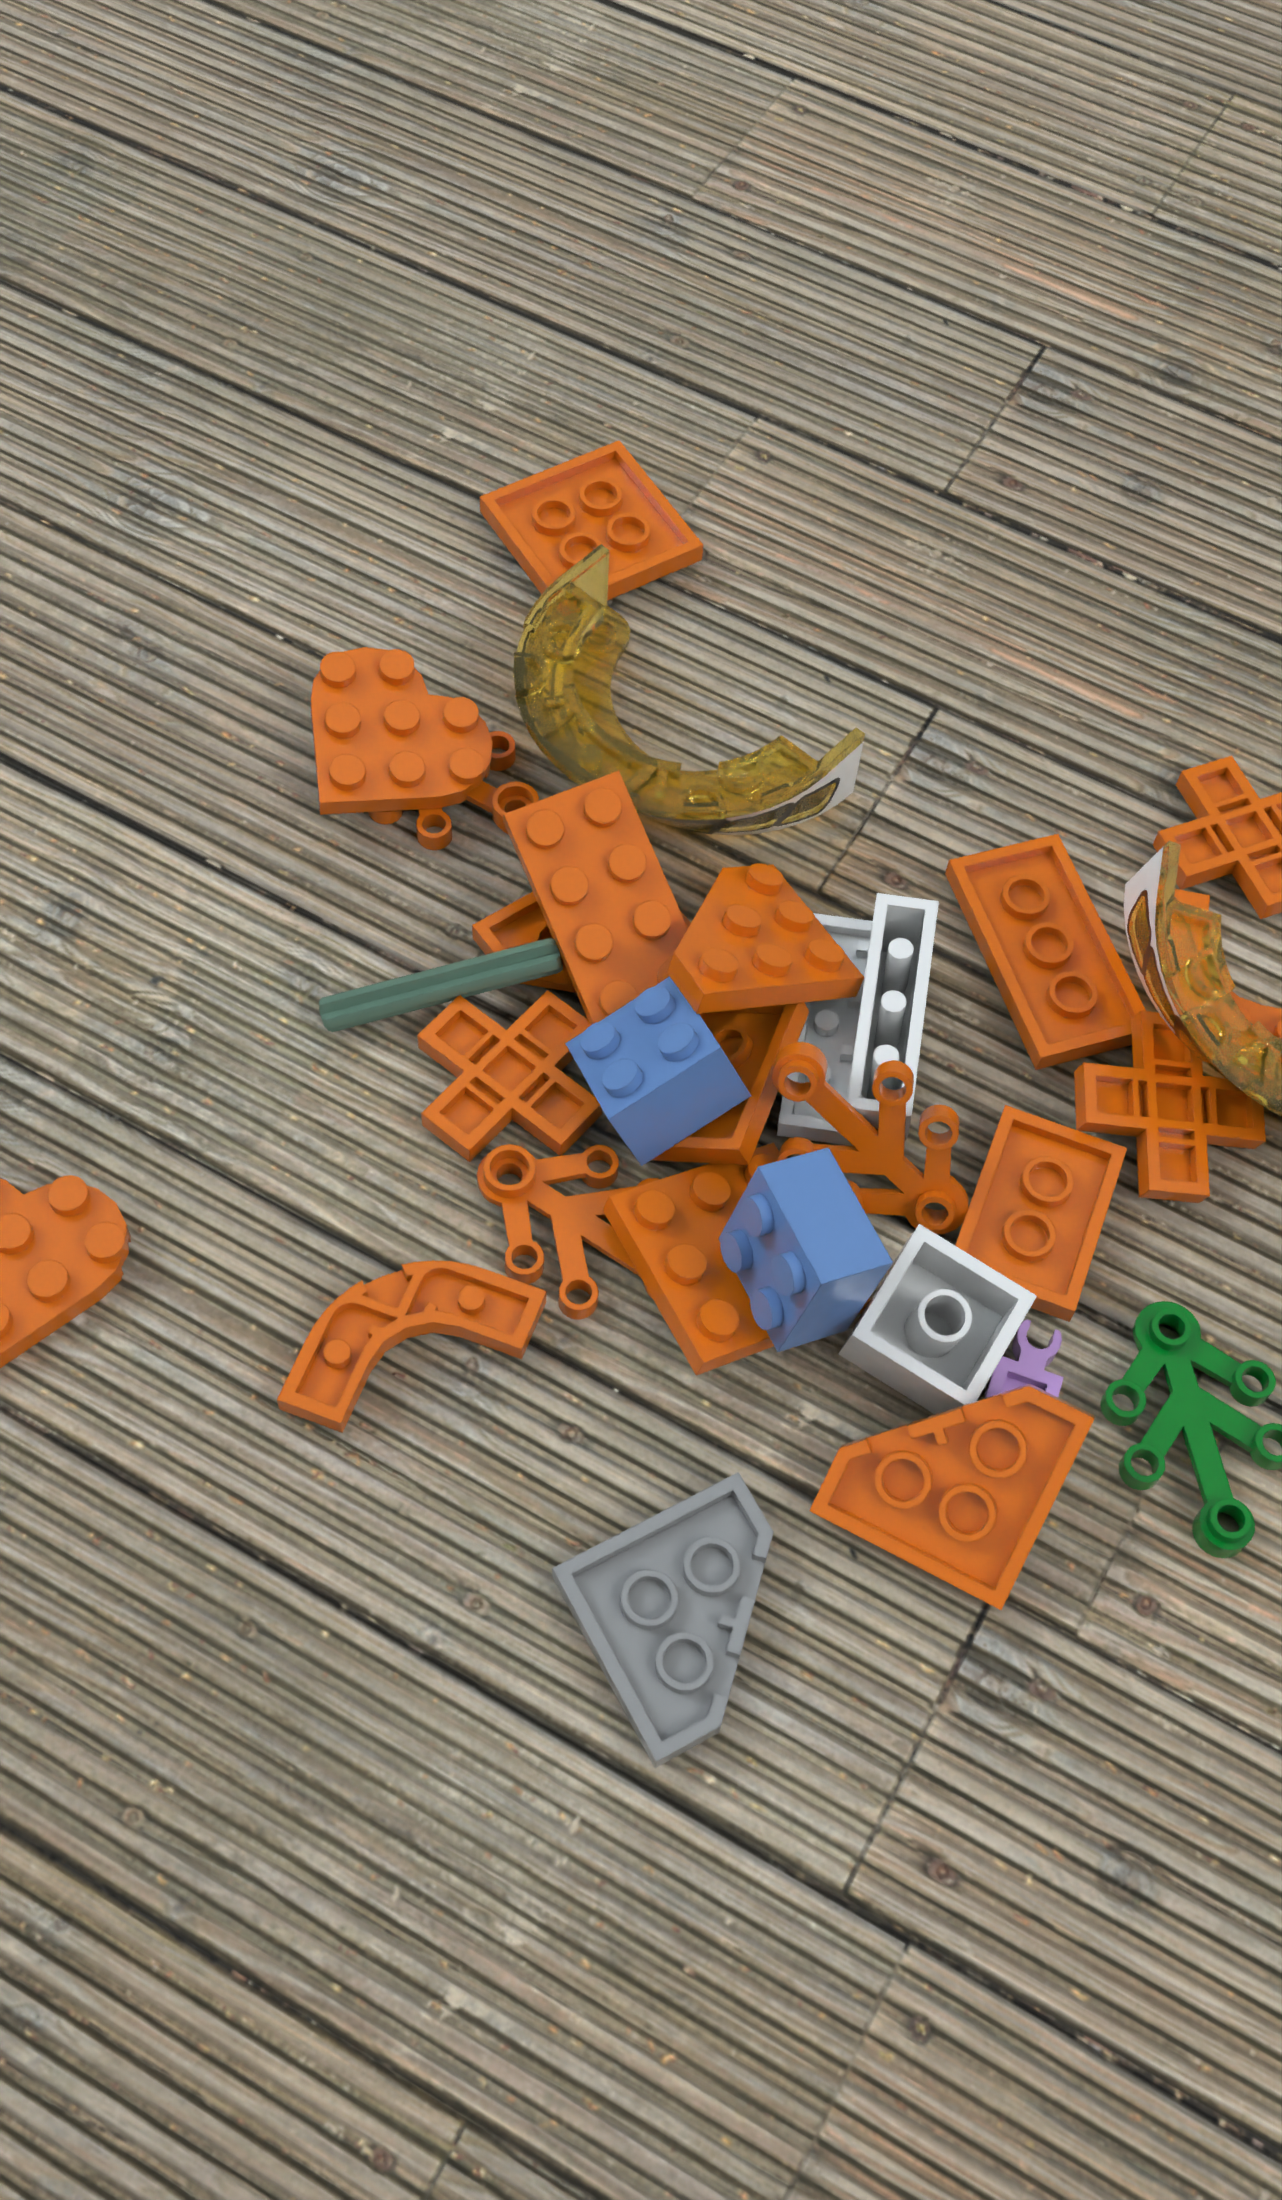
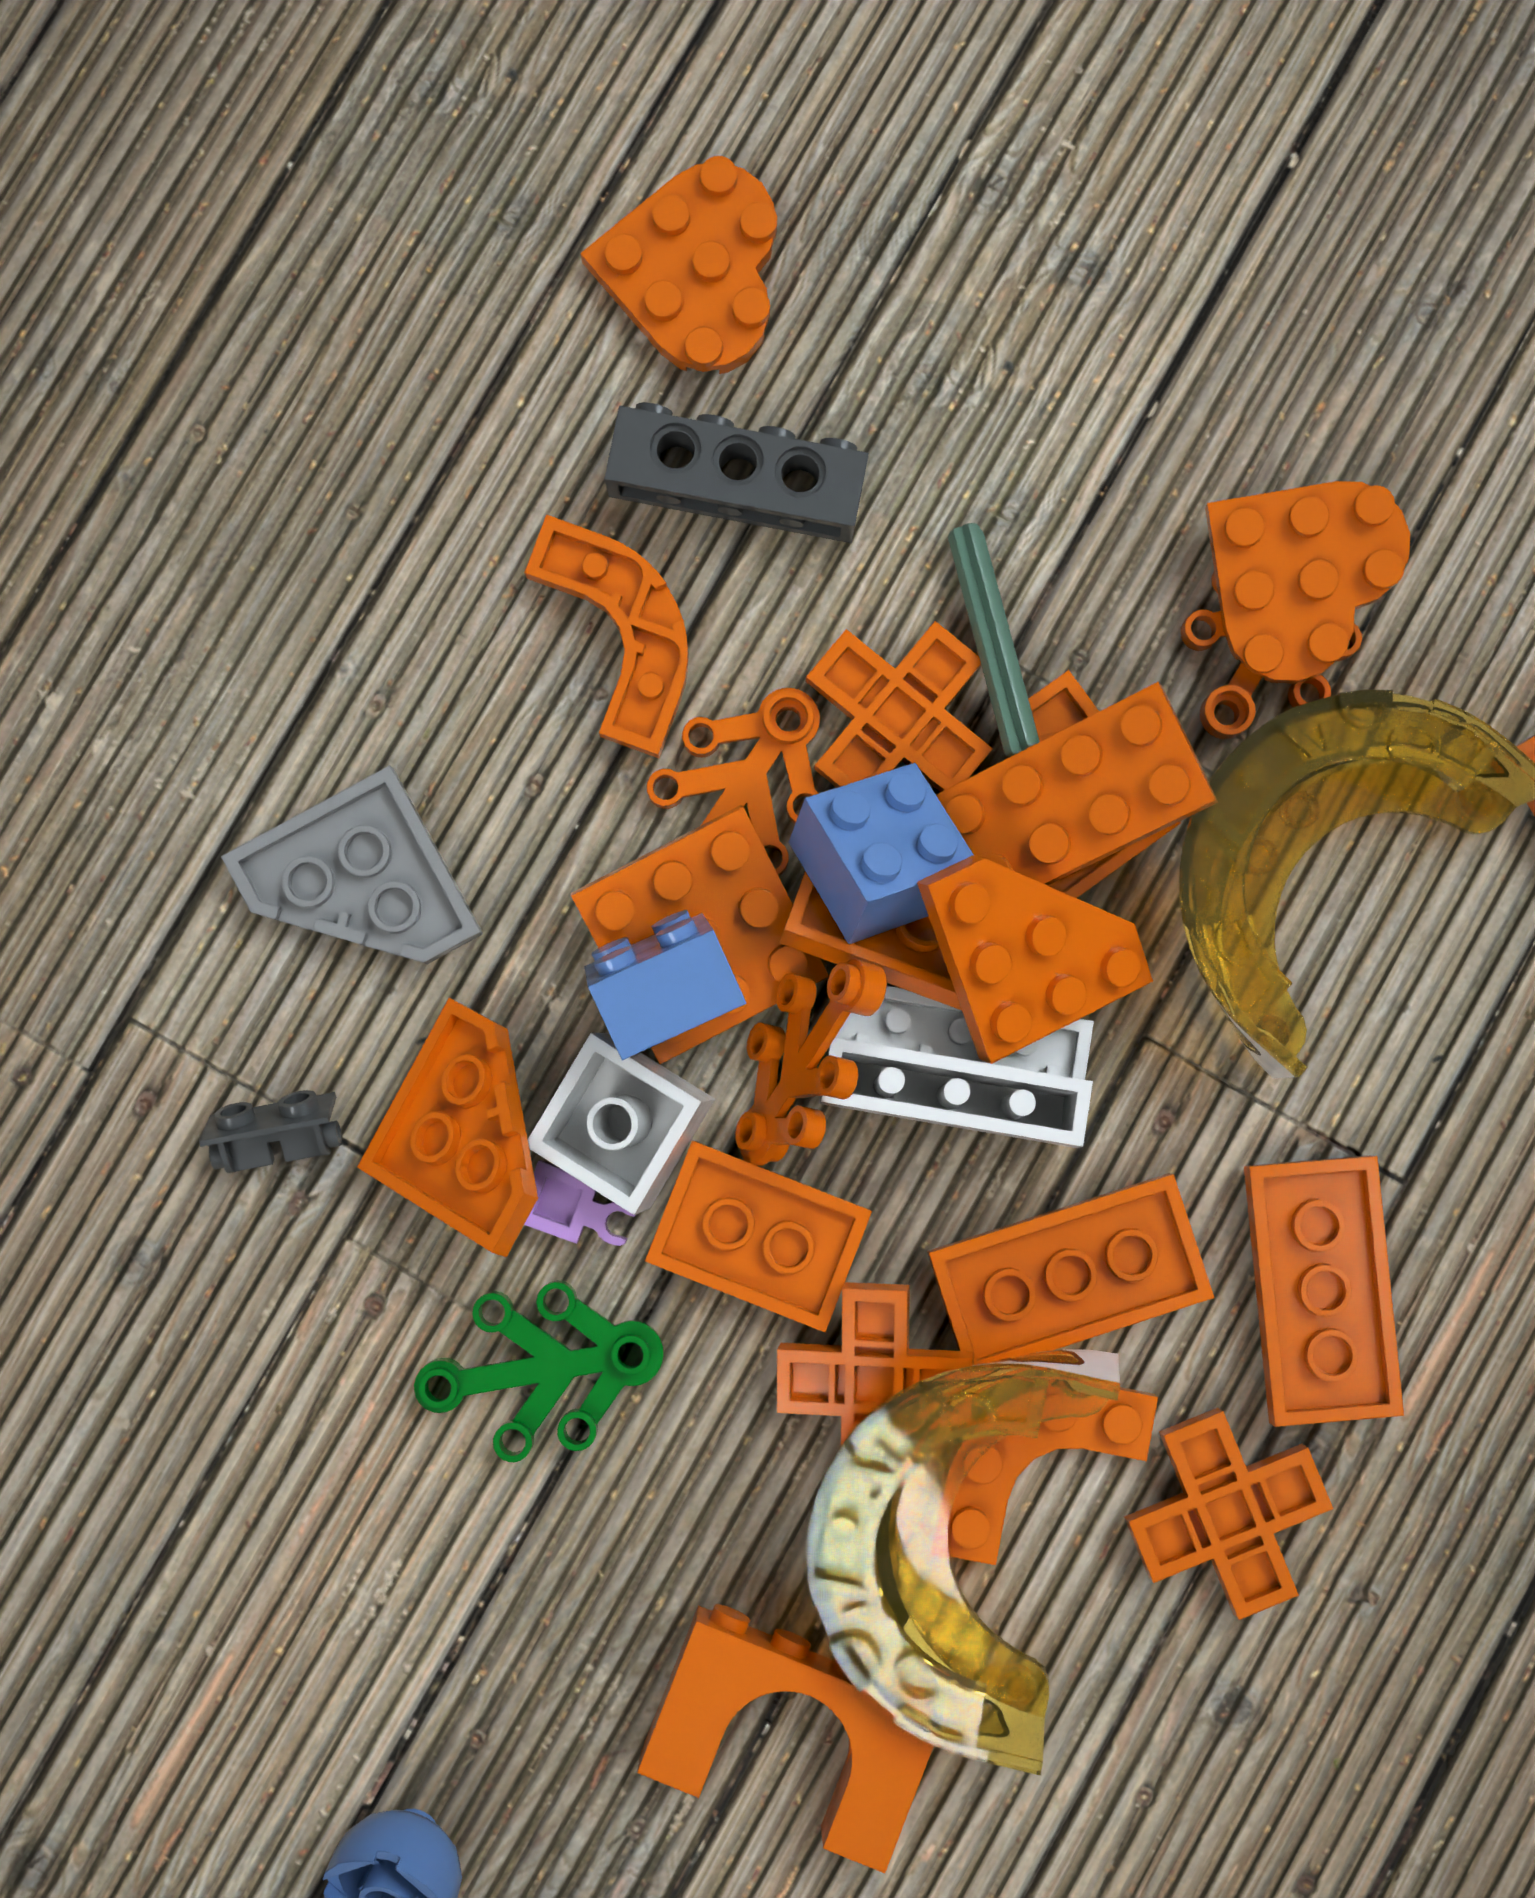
camera: 90 degrees right, 25 degrees up
(234, 1308) = (702, 488): none -> dark grey brick
(969, 1741) = (242, 1133): none -> dark grey hinge
(1040, 759) = (1323, 1291): none -> orange plate

